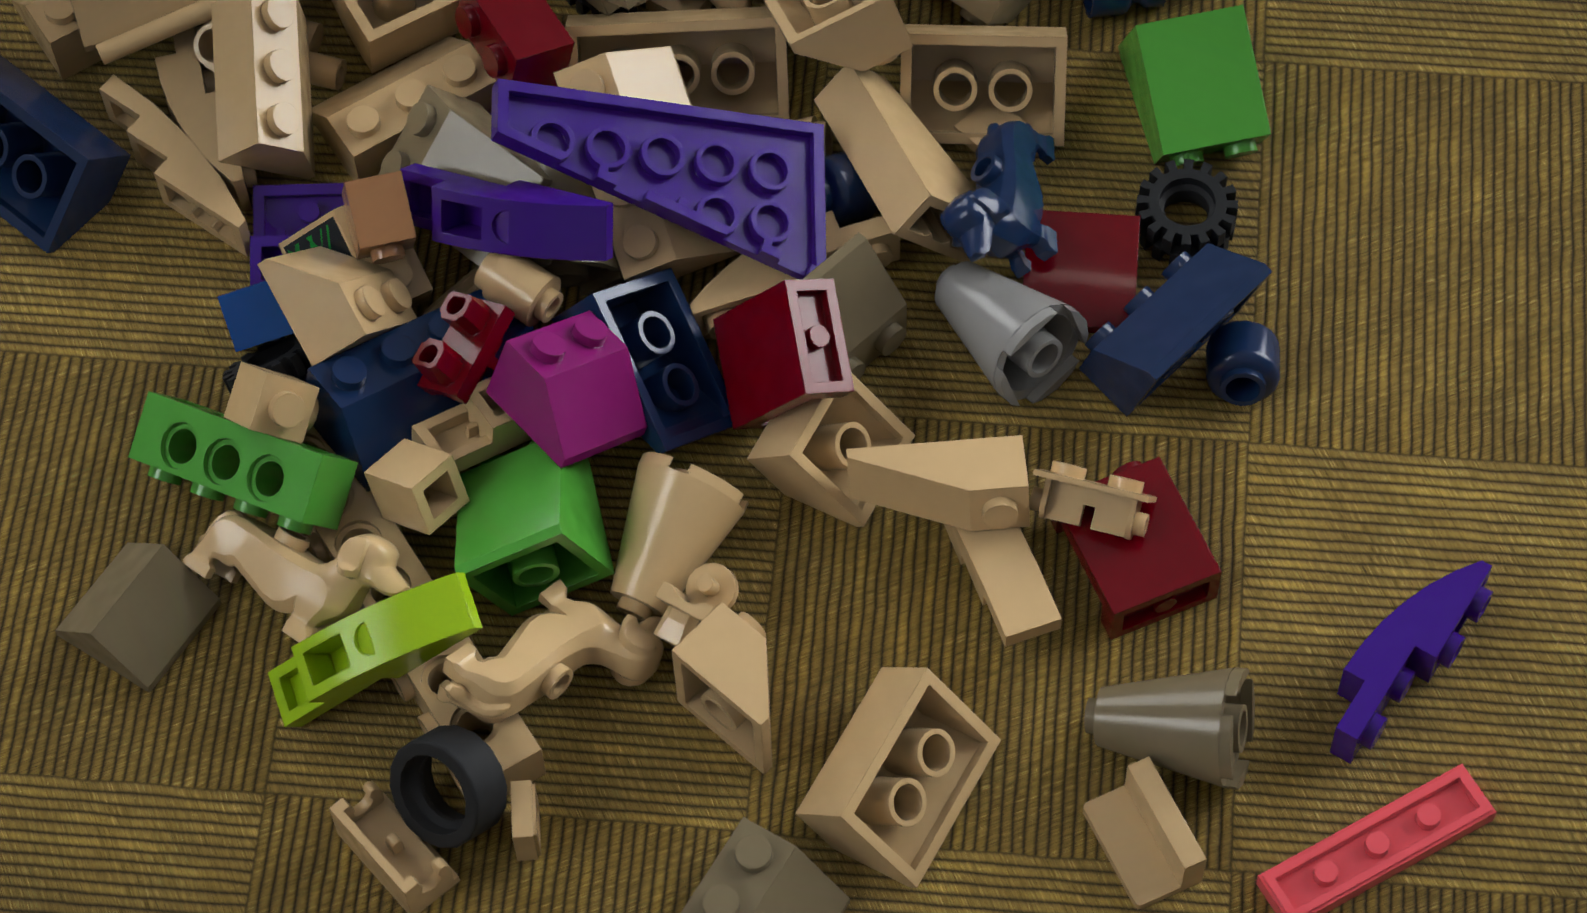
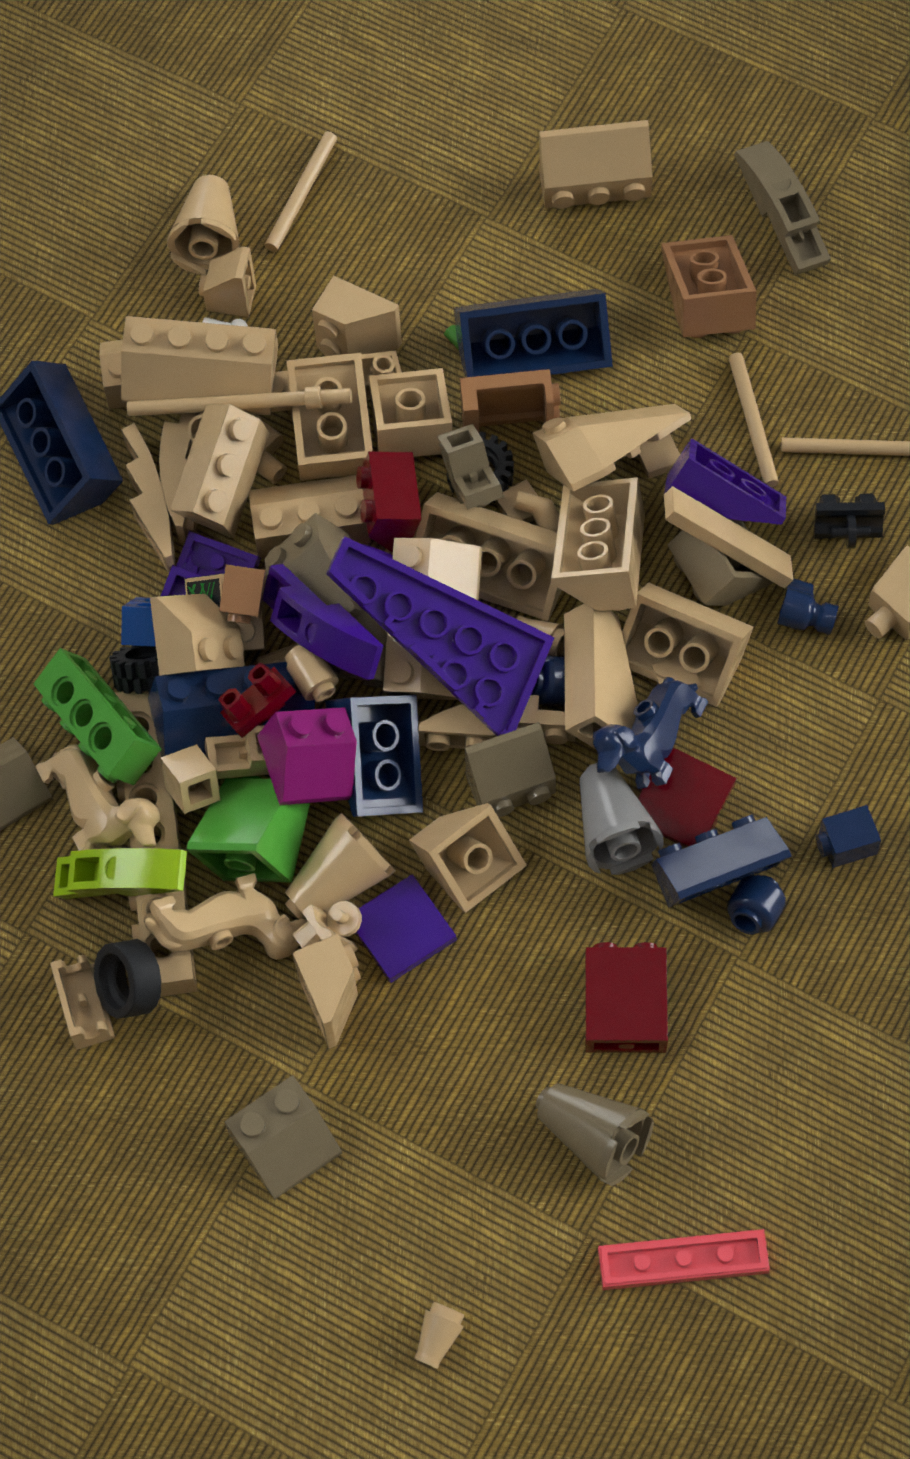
camera: 25 degrees right, 5 degrees up
(272, 403) = (125, 690): tan brick -> none
(525, 820) = (167, 1018): tan tile -> none
(783, 351) = (457, 782): dark red panel -> none
(793, 578) = (403, 928): none -> dark purple tile
(899, 774) = (407, 1086): tan slope -> none
(951, 482) = (528, 913): tan slope -> none
(1007, 581) = (535, 959): tan slope -> none
(1115, 504) = (620, 966): tan hinge -> none
(1146, 837) = (539, 1191): tan panel -> none
(1185, 186) = (775, 765): black tyre -> none
(1196, 86) = (818, 705): bright green slope -> none
(1317, 235) = (848, 836): none -> dark blue brick
(1403, 646) = (775, 1133): dark purple slope -> none

